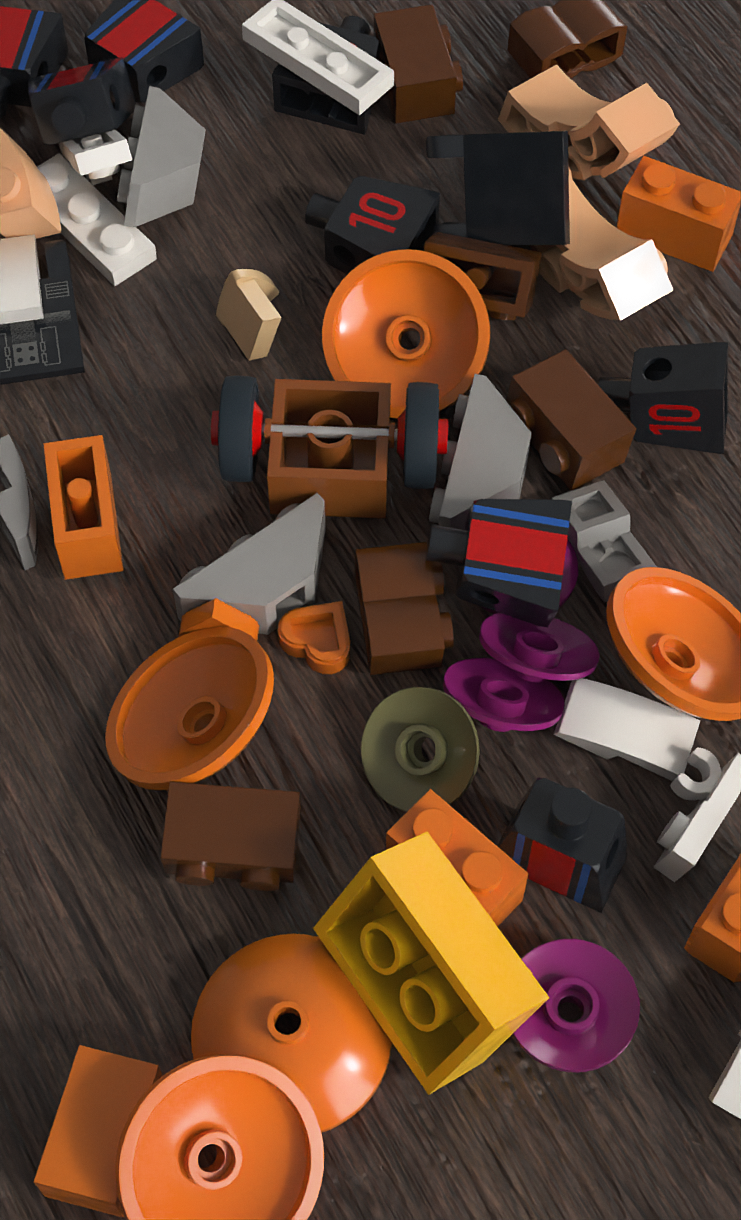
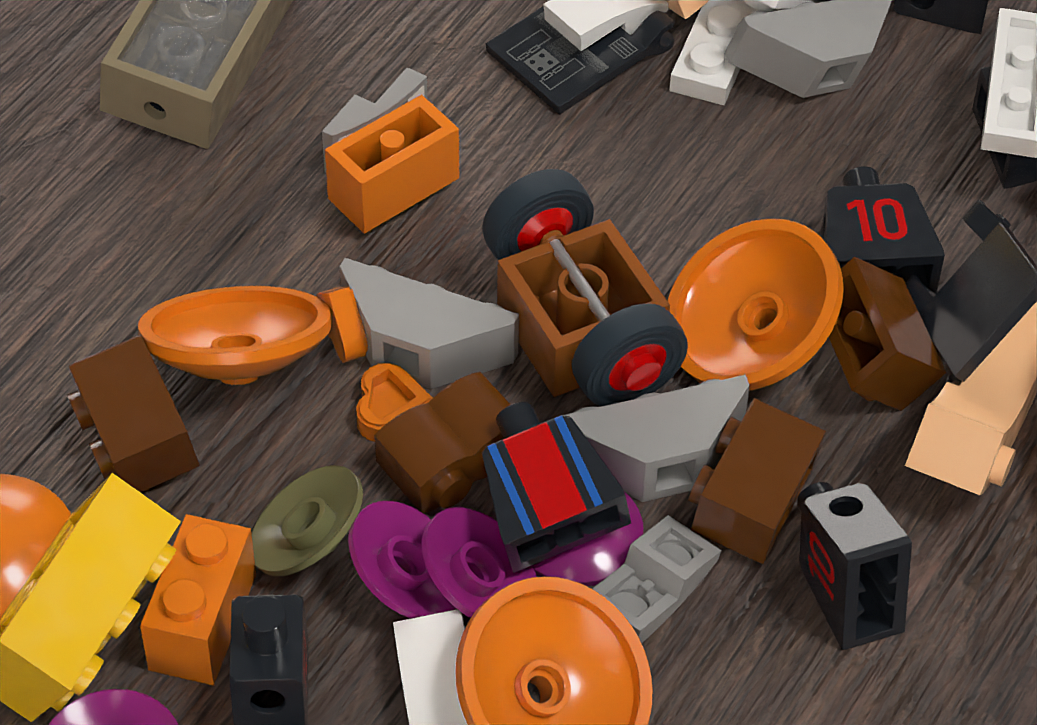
camera: 60 degrees right, 10 degrees down
(247, 311) = (715, 176): tan tile -> none

